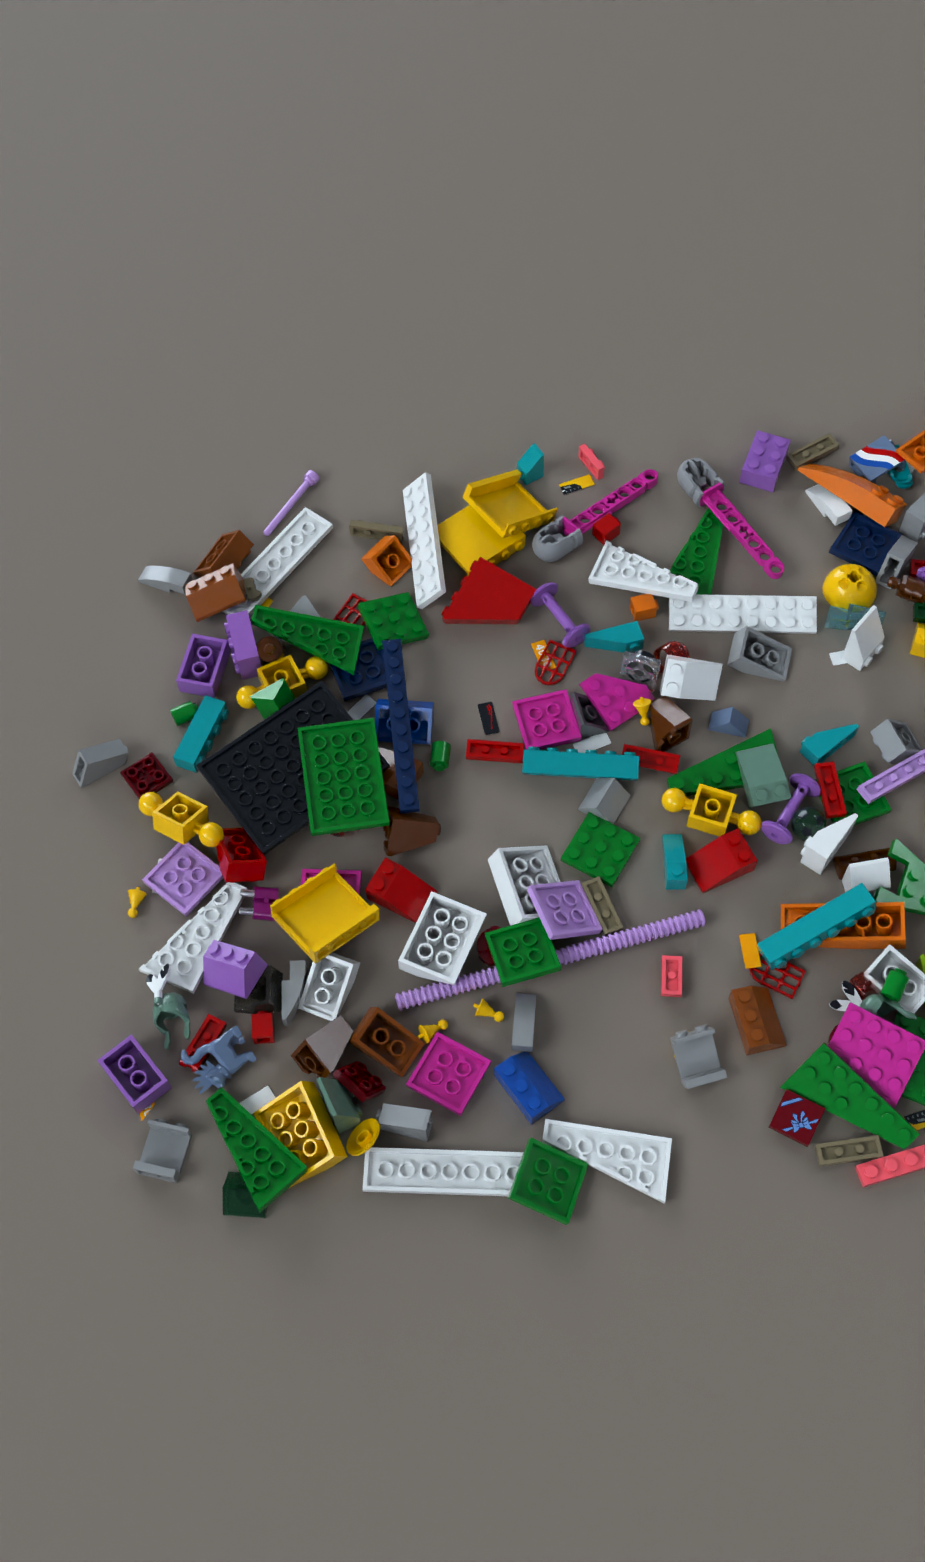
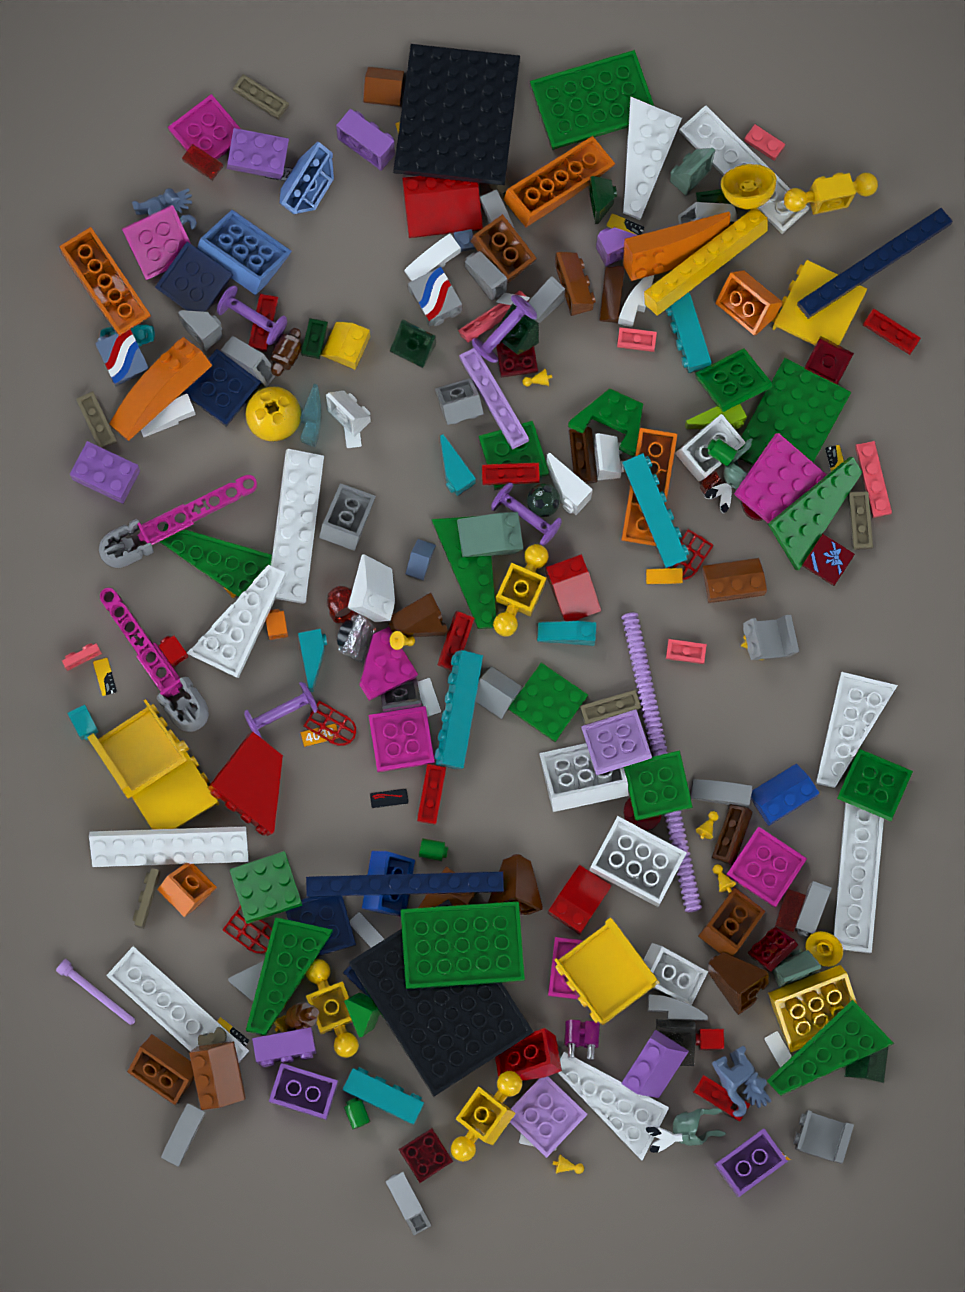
camera: 90 degrees left, 15 degrees up
(403, 1098) = (790, 910): none -> clear red plate
(481, 1038) = (732, 834): none -> reddish brown slope

